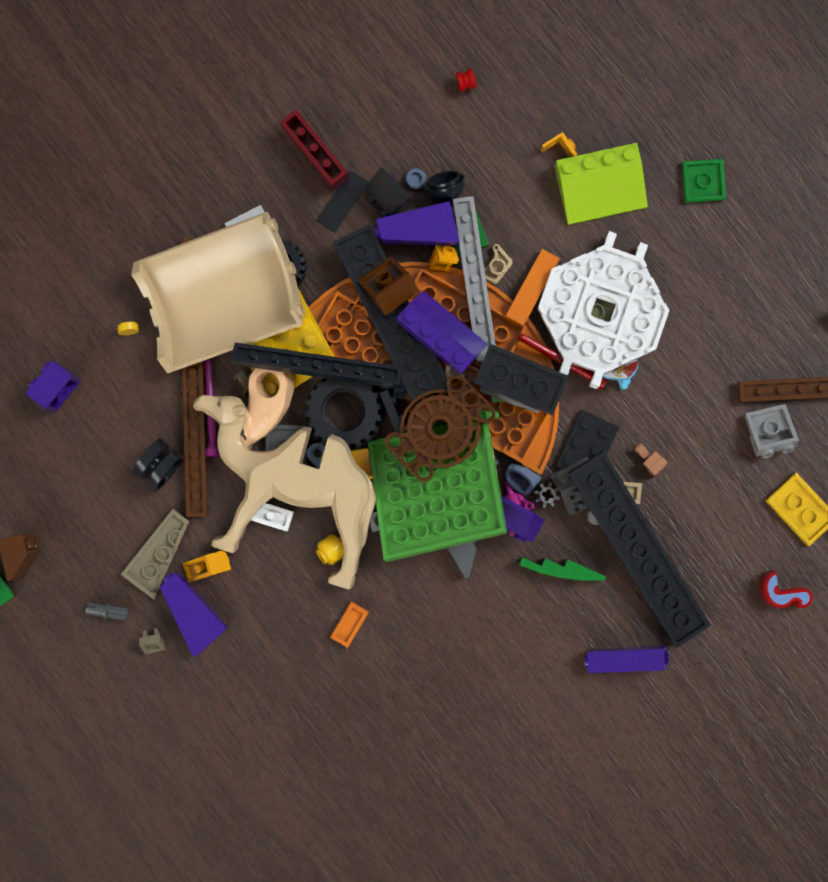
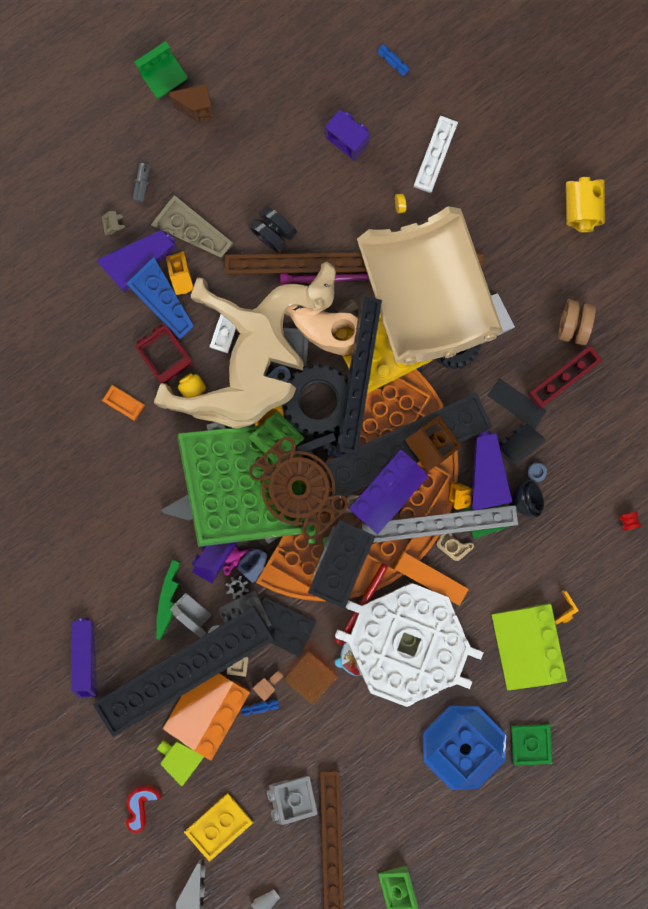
camera: 90 degrees right, 0 degrees up
(74, 292) = (435, 154): none -> white tile
(127, 130) = (585, 204): none -> yellow cylinder
(230, 589) = (158, 295): none -> blue wing
(255, 137) = (576, 322): none -> medium nougat wheel
(282, 601) = (176, 369): none -> dark red window
(380, 459) = (272, 431): none -> bright green slope
(577, 543) = (191, 614): none -> light grey panel
(640, 413) = (311, 677): none -> clear orange bracket
(673, 468) = (260, 707): none -> blue axle
(684, 523) = (207, 714): none -> orange slope
(693, 265) = (456, 727): none -> blue piece
(732, 551) = (179, 760): none -> lime torso

